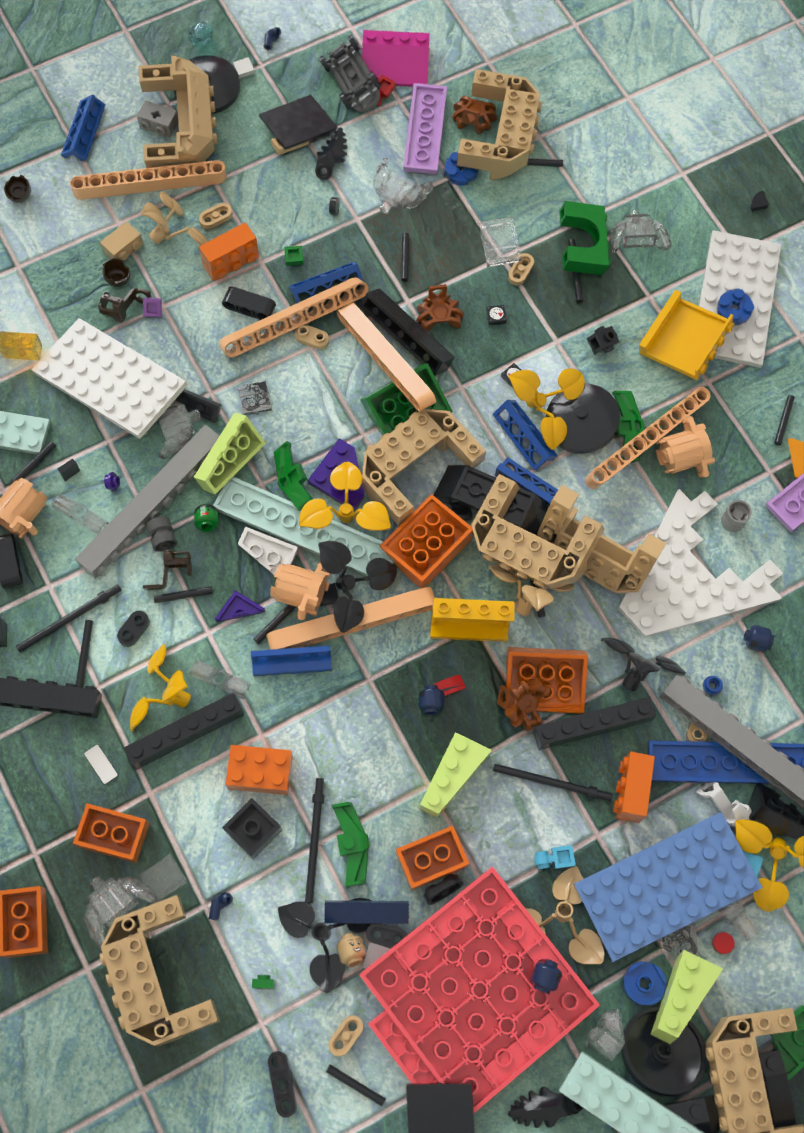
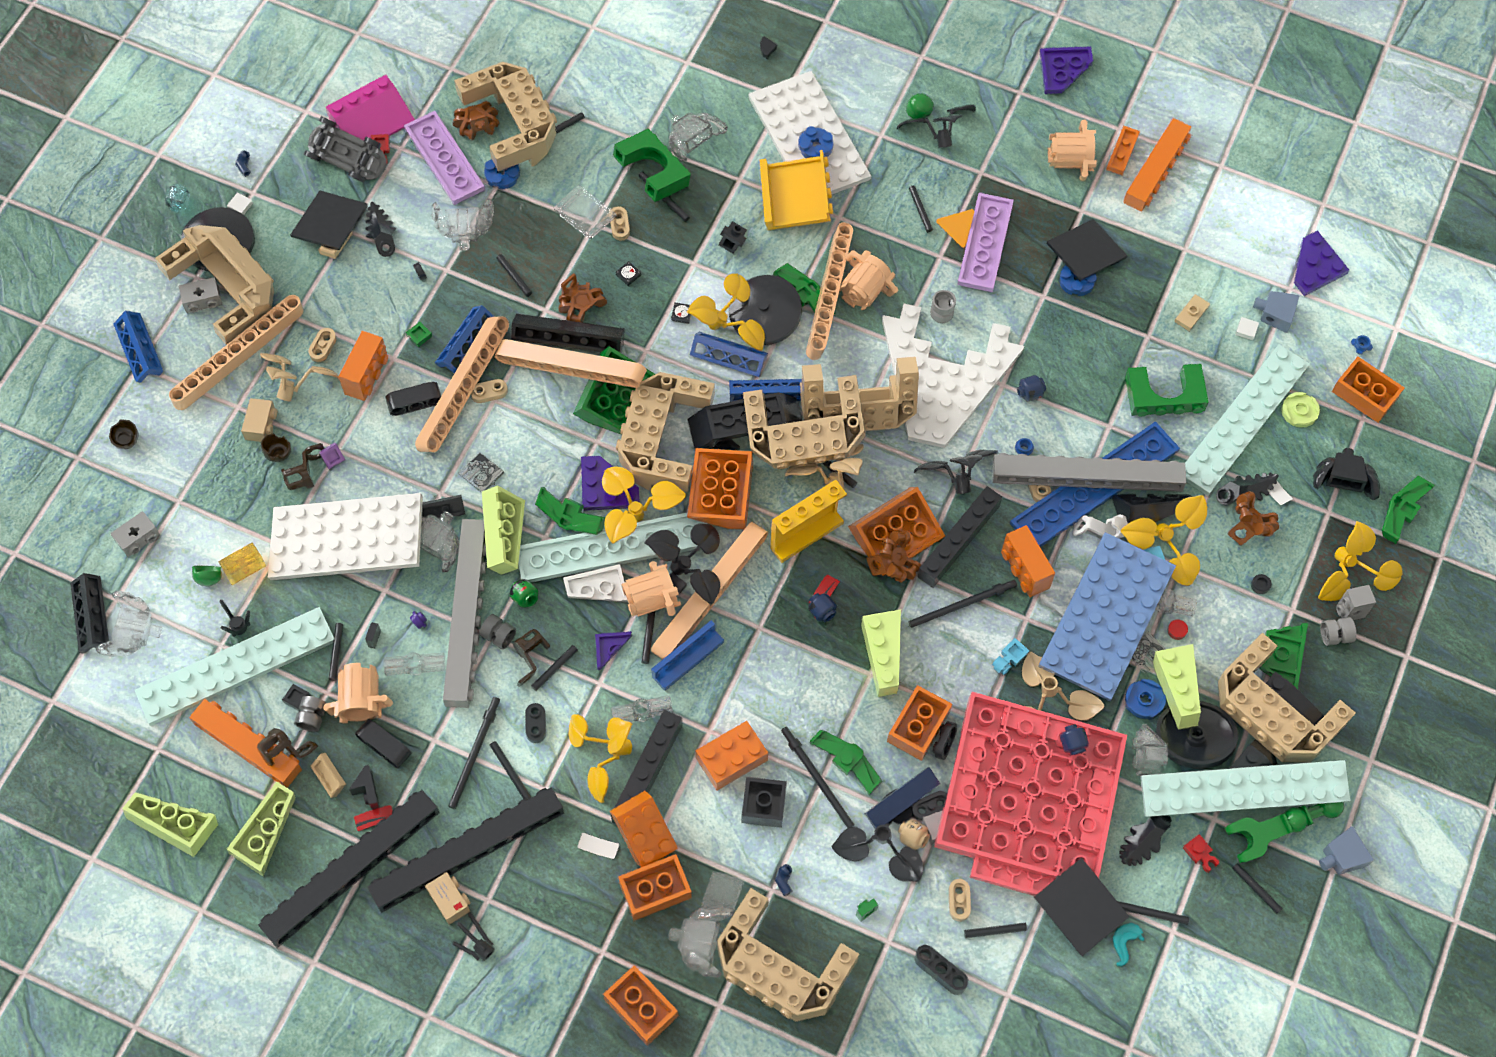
camera: 35 degrees left, 5 degrees down
(137, 779) = (643, 829): none -> orange brick

